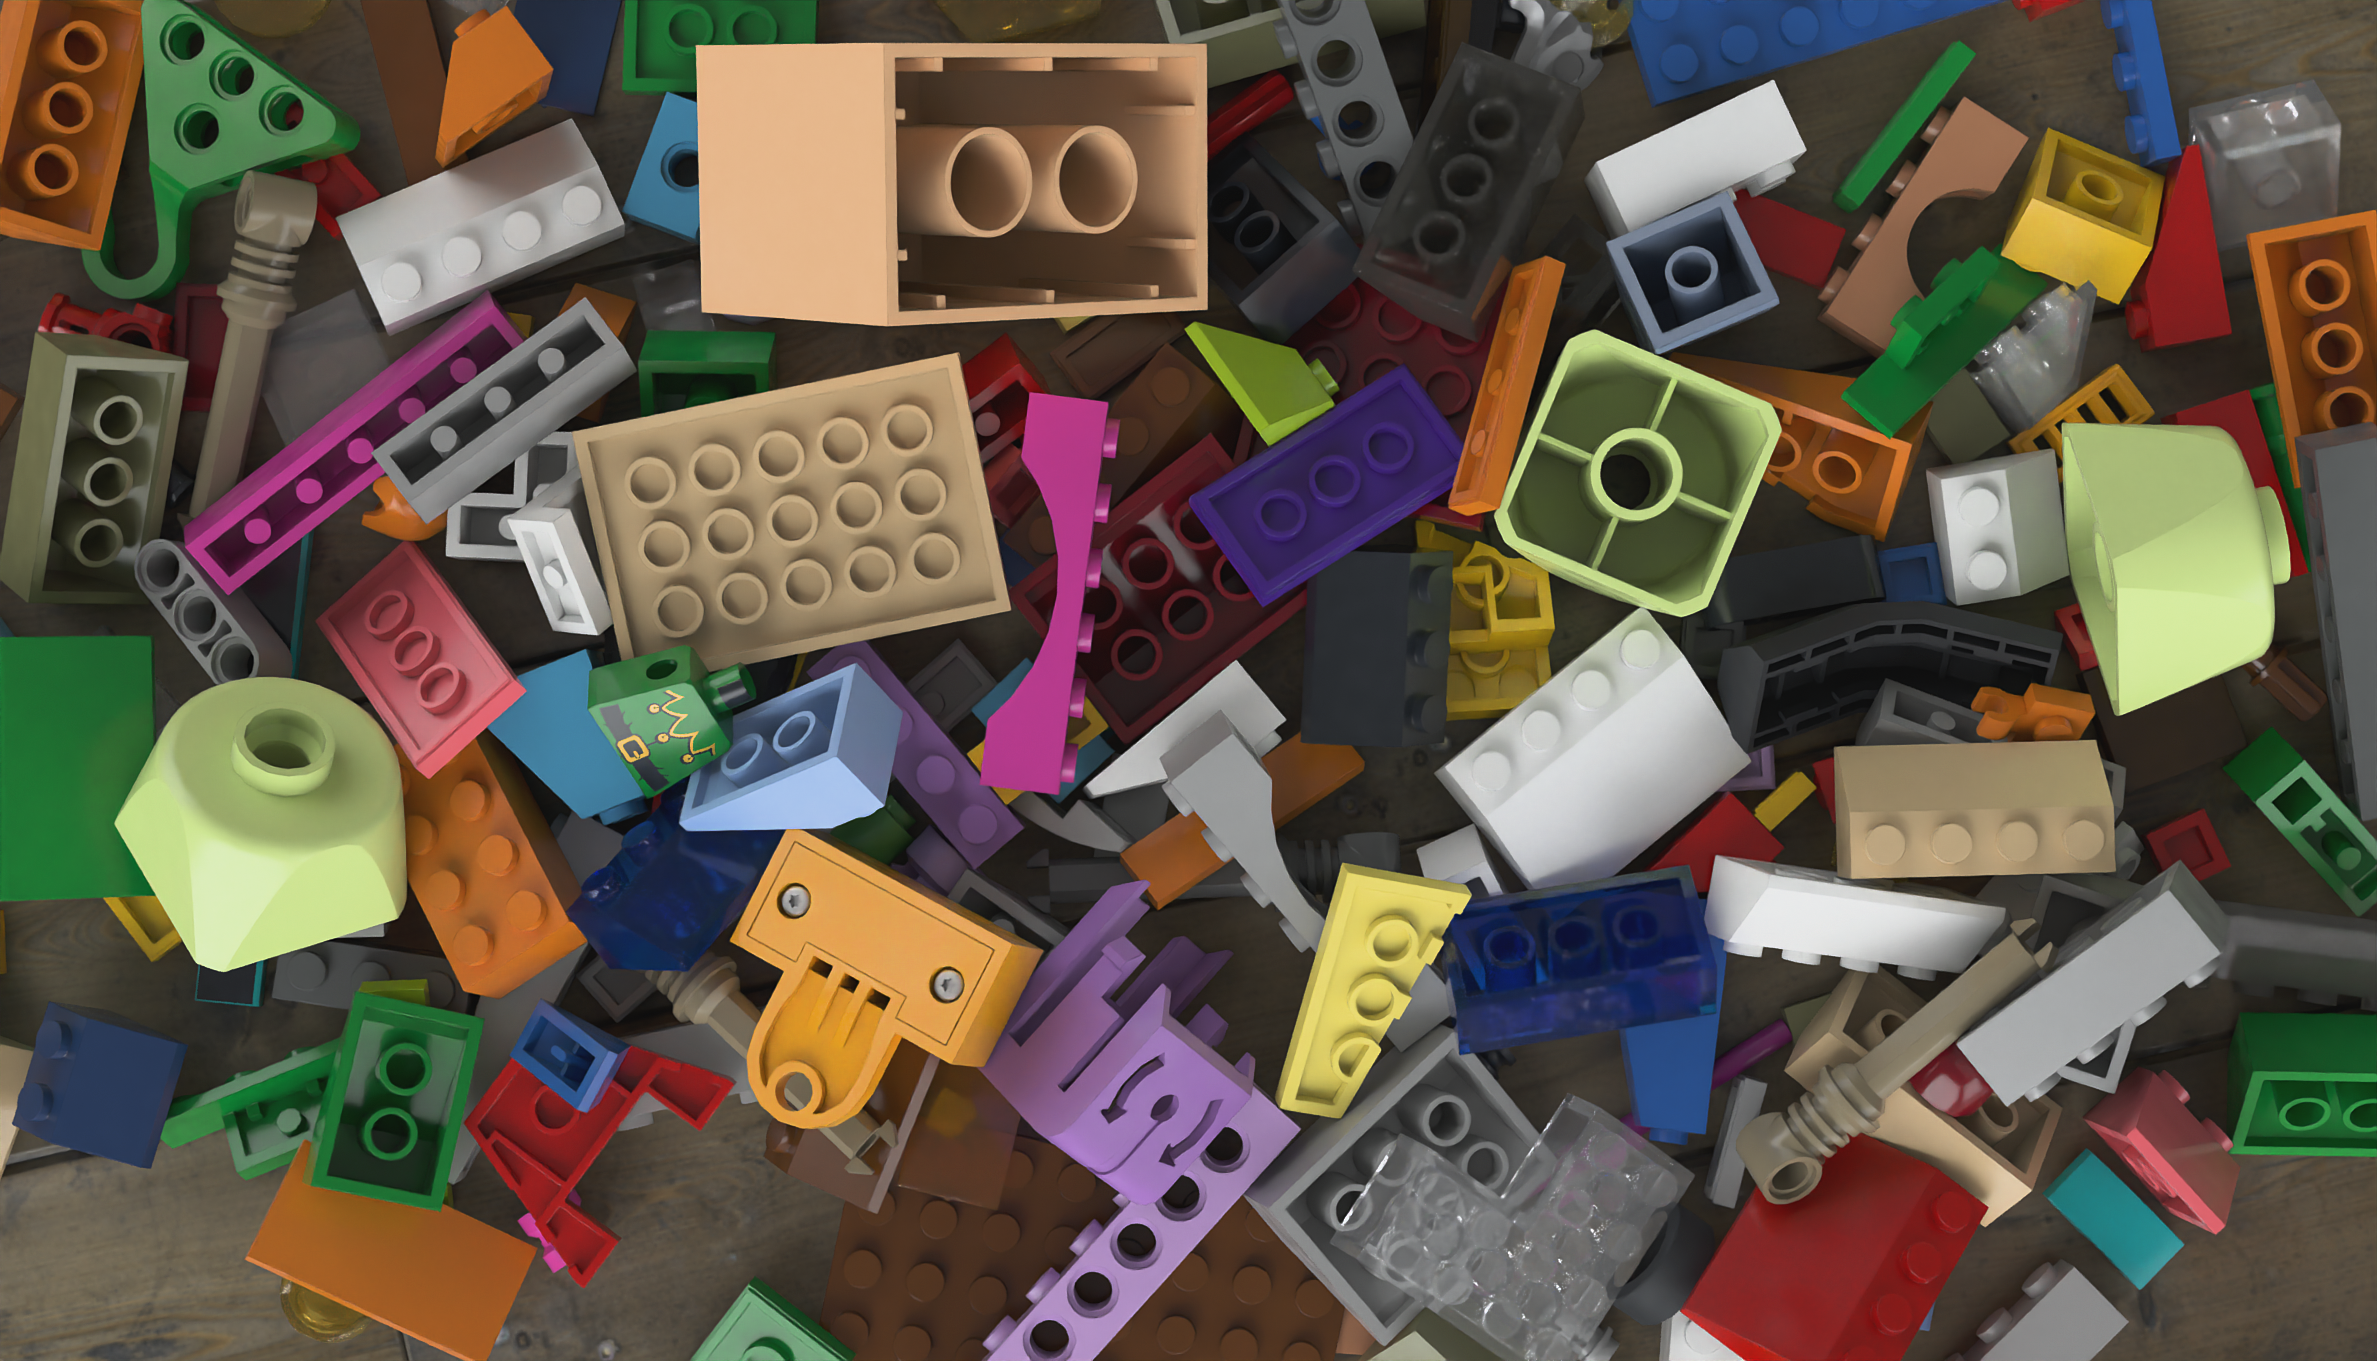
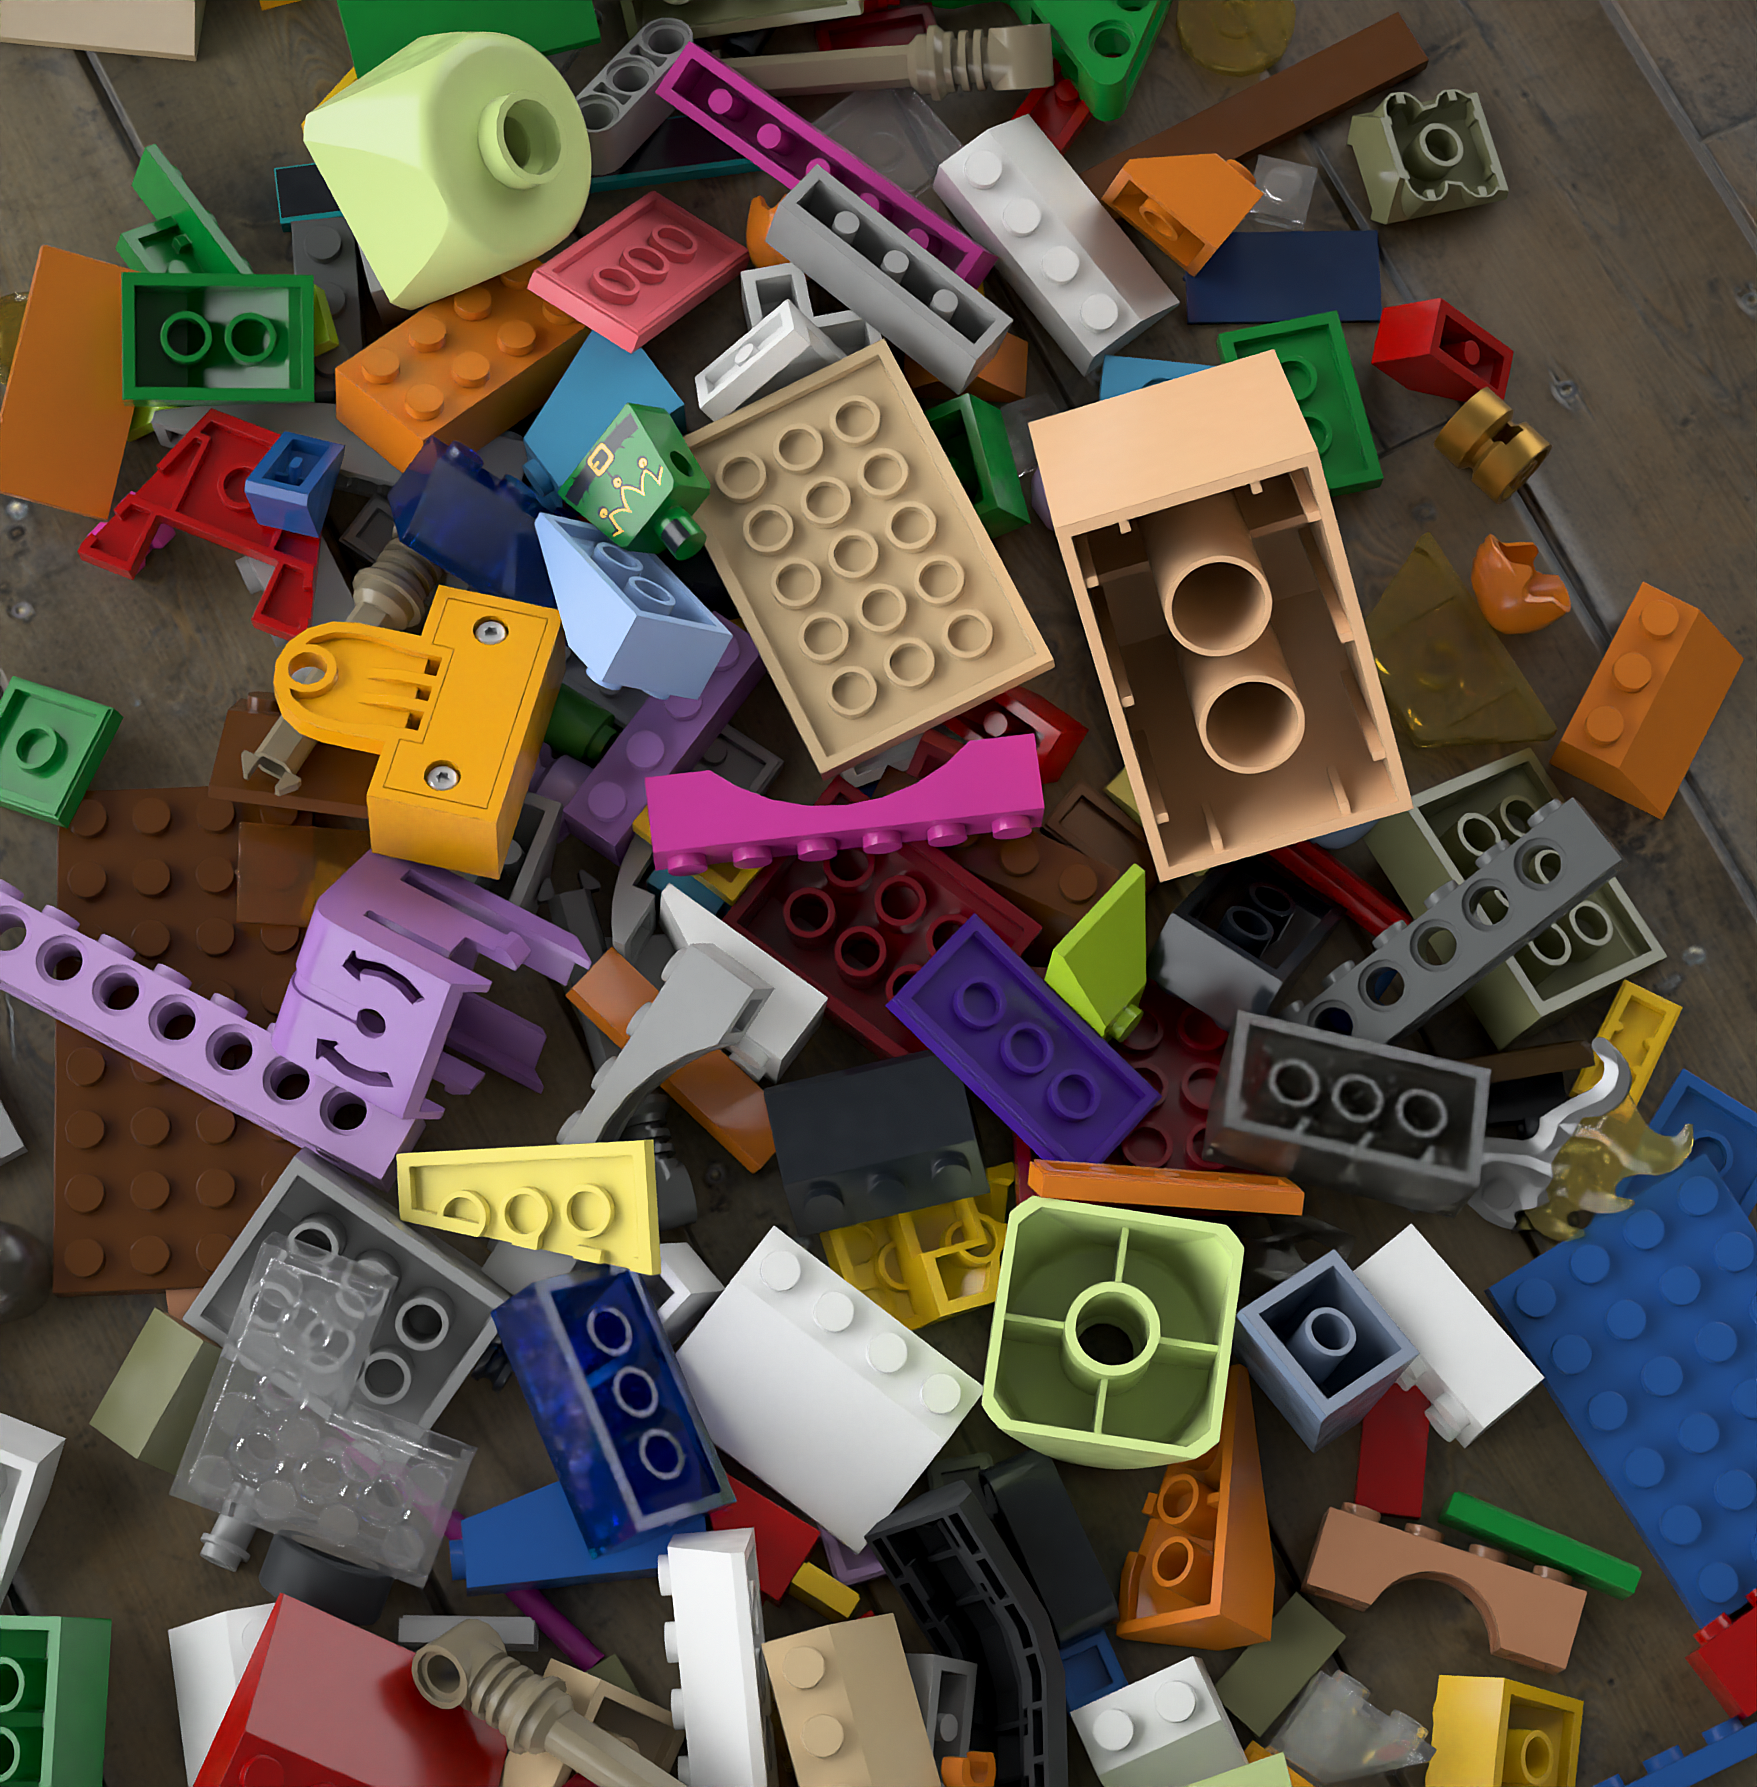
camera: 75 degrees right, 15 degrees down
(99, 1084) = (177, 95): dark blue slope -> none
(1942, 335) = (1340, 1625): green bracket -> none

